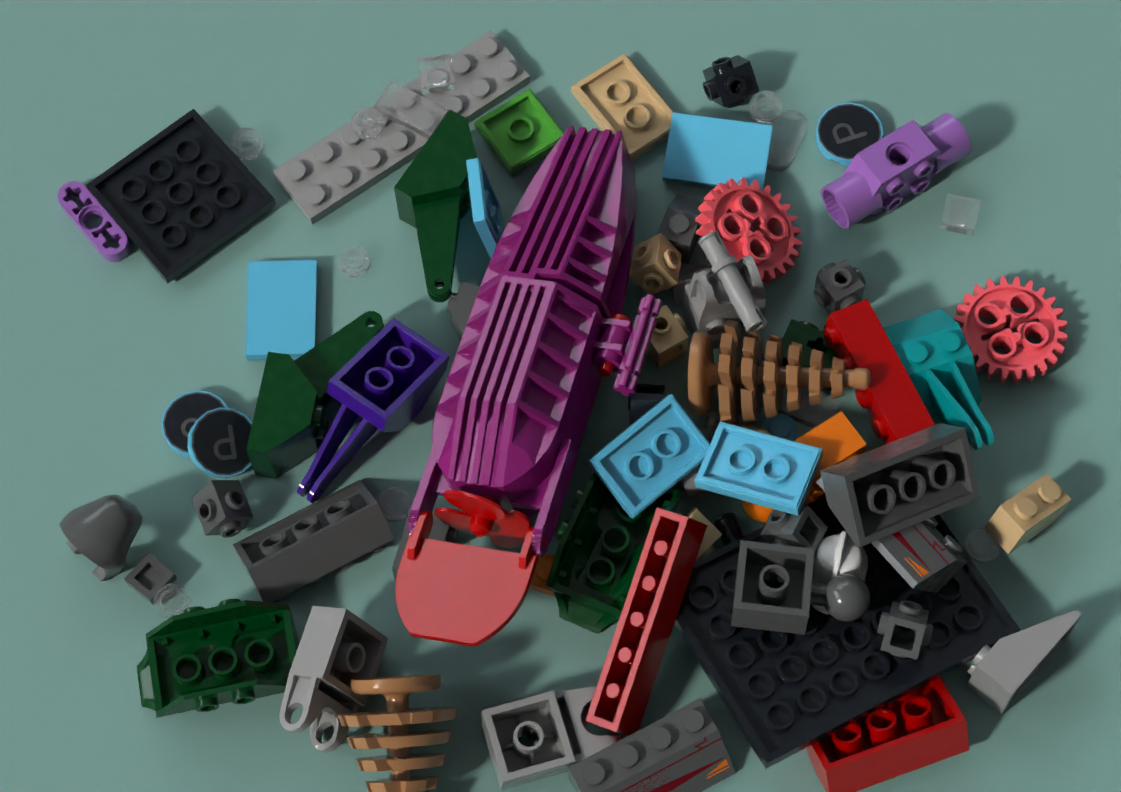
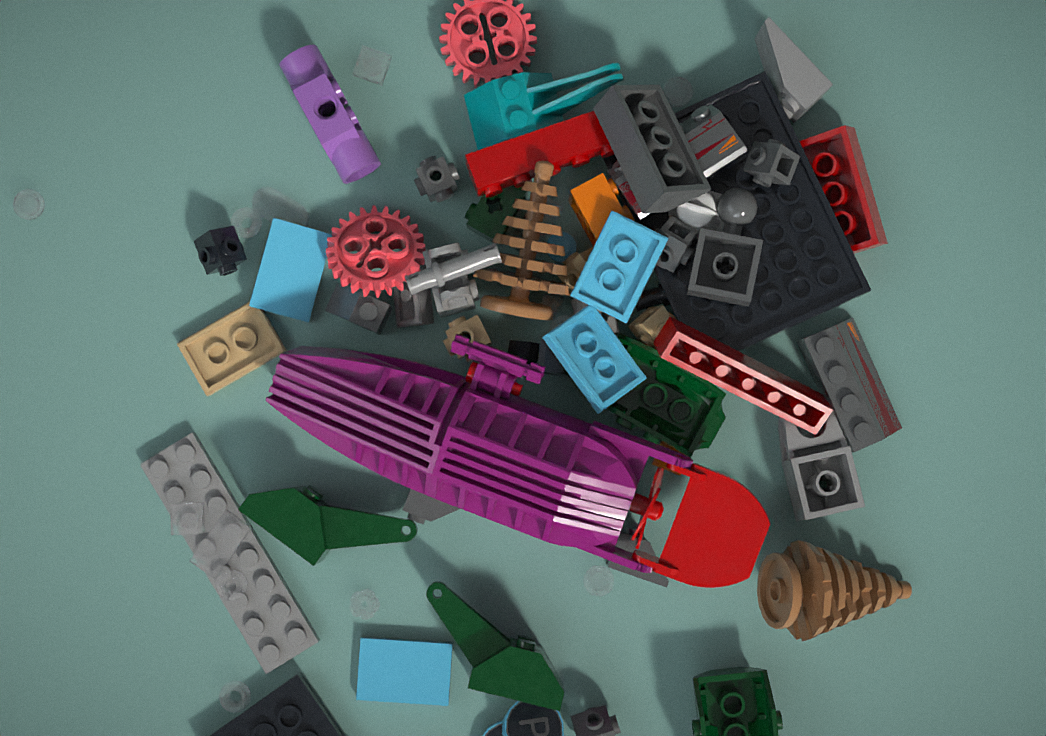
camera: 90 degrees left, 20 degrees up
(314, 542) = (629, 654): dark grey slope -> none
(330, 655) = (747, 644): light grey brick -> none
(384, 386) = (501, 588): dark purple slope -> none
(484, 205) = (341, 483): medium azure tile -> none
(519, 131) = (249, 445): bright green plate -> none
(655, 264) = (402, 336): tan brick -> none
(847, 131) = (280, 151): black tile -> none
(1027, 513) = (662, 49): tan brick -> none

